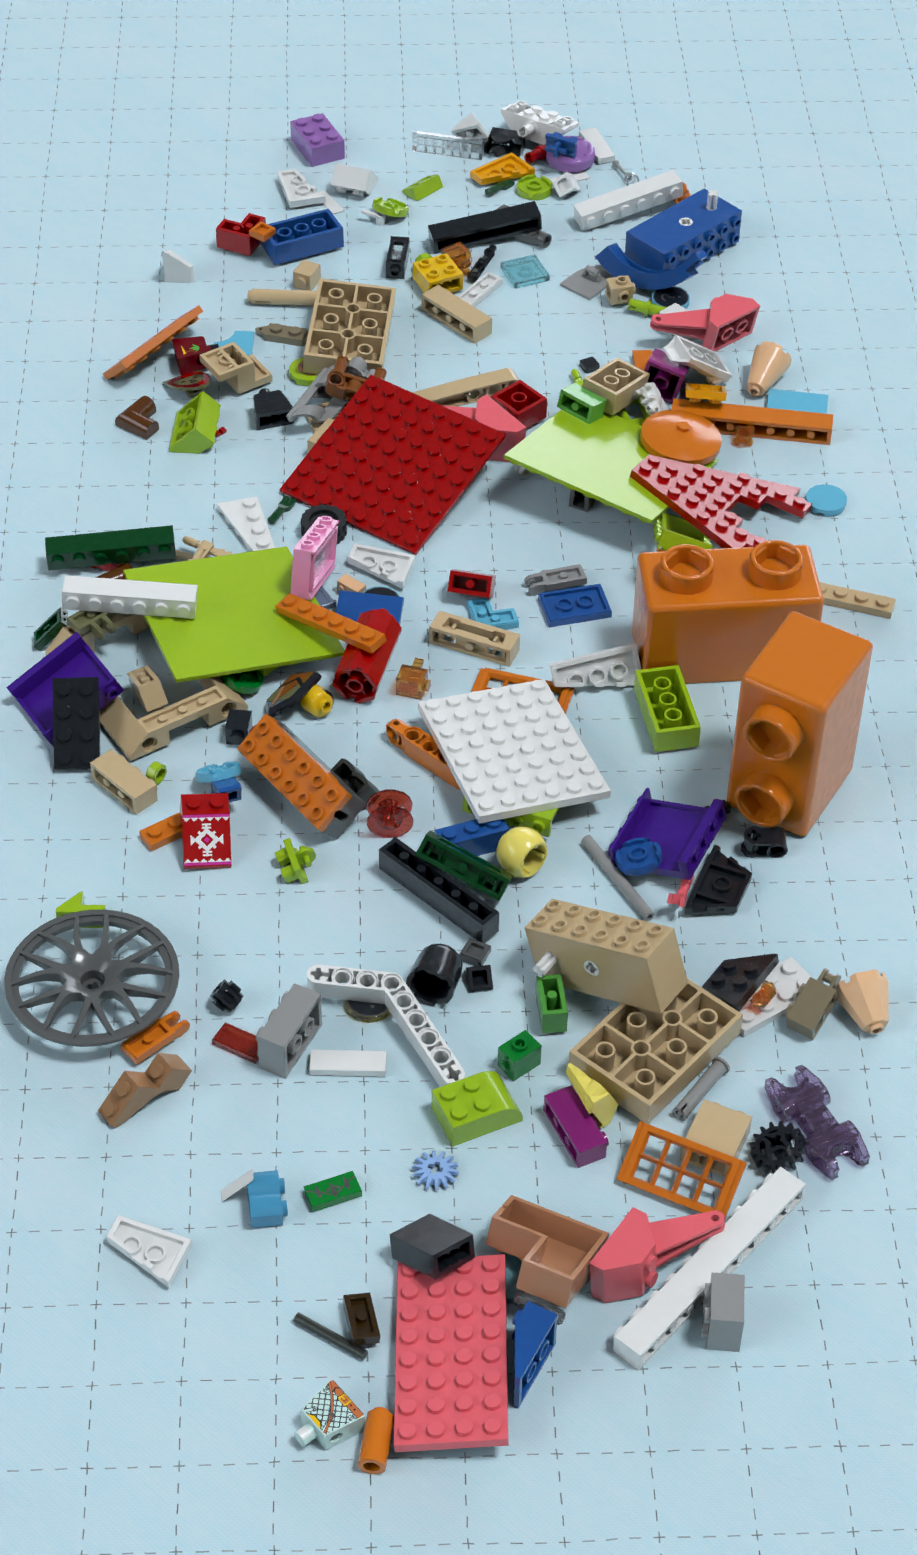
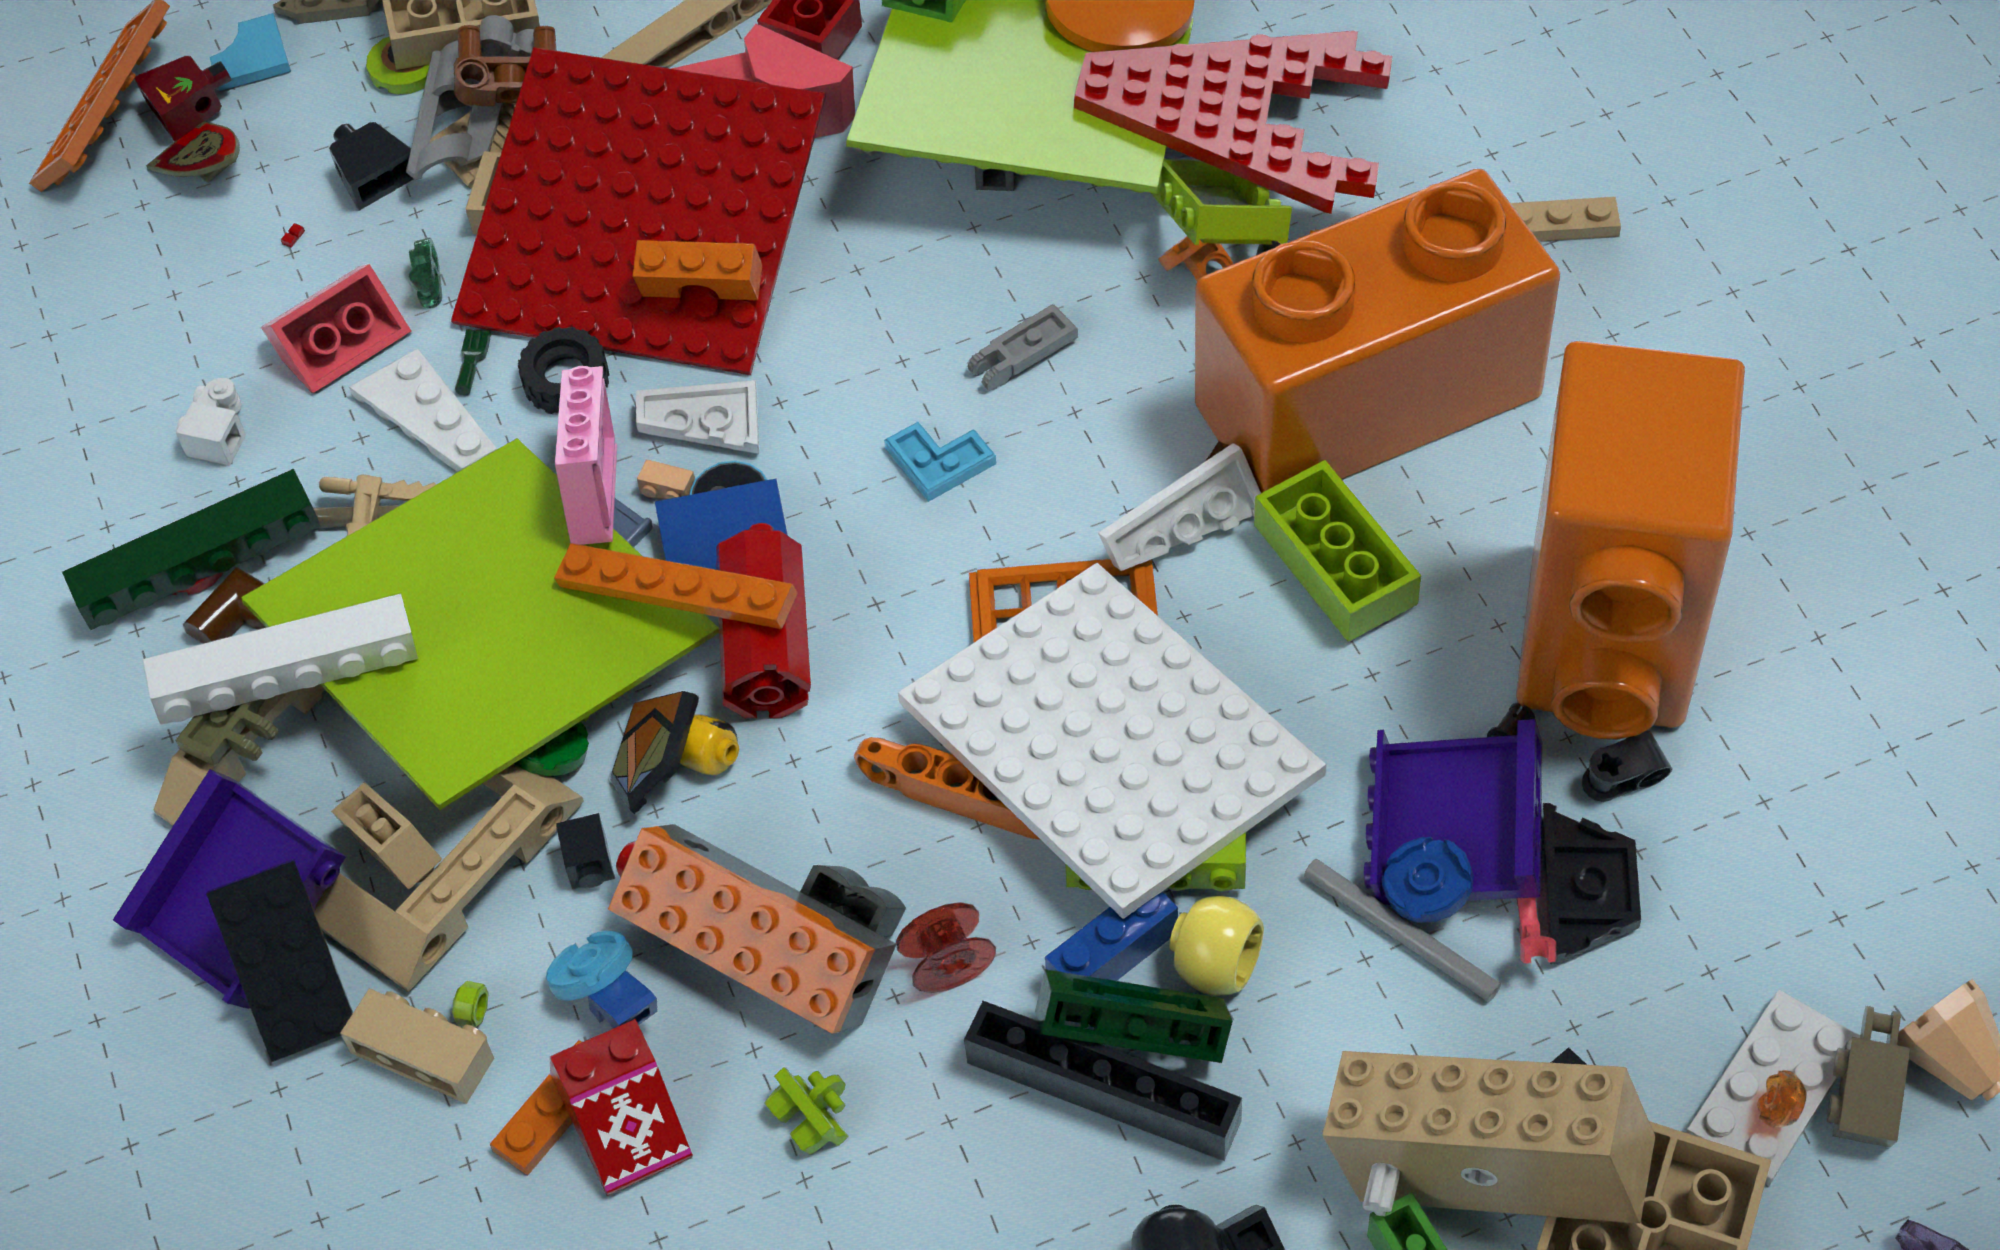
camera: 15 degrees left, 10 degrees up
(50, 629) = (146, 763): dark green tile -> none
(137, 420) = (127, 256): reddish brown brick -> none
(143, 500) = (211, 424): none -> white brick
(195, 425) = (245, 239): lime slope -> none
(222, 475) = (336, 328): none -> coral slope
(236, 367) = (274, 100): tan bracket -> none
(276, 464) = (426, 273): none -> clear green plate
(413, 680) = (861, 641): clear orange brick -> none
(421, 498) = (726, 268): none -> orange arch
(471, 583) = (882, 406): red brick -> none
(474, 638) = (933, 516): tan brick -> none
(475, 952) = (1219, 1184): dark grey tile -> none
(574, 605) = (1076, 387): blue tile -> none
(740, 978) = (1716, 1078): black wing -> none
(826, 500) = (1410, 38): medium azure tile -> none

